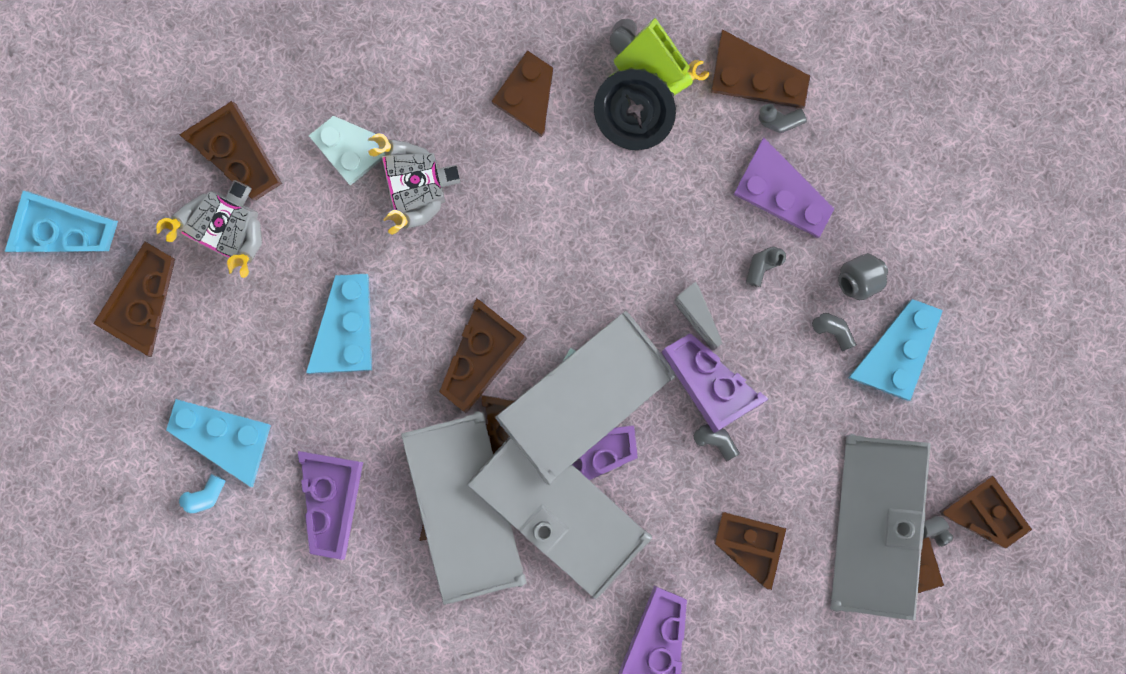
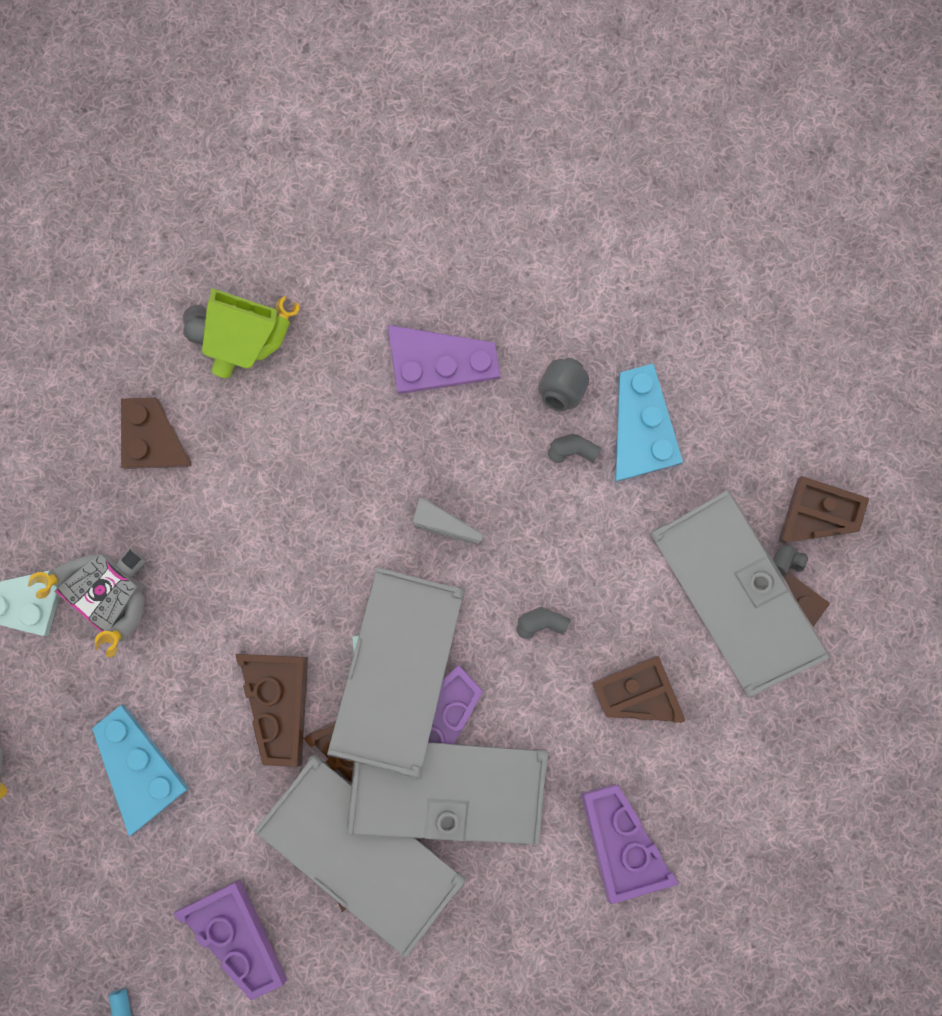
camera: 35 degrees left, 0 degrees up
(221, 437) = (94, 953): medium azure wing -> none
(627, 128) = (258, 405): black gear -> none
(711, 385) = (501, 577): medium lavender wing -> none
(756, 75) = (342, 274): reddish brown wing -> none
(762, 262) = (467, 434): dark grey arm -> none
(779, 122) = (393, 301): dark grey arm -> none

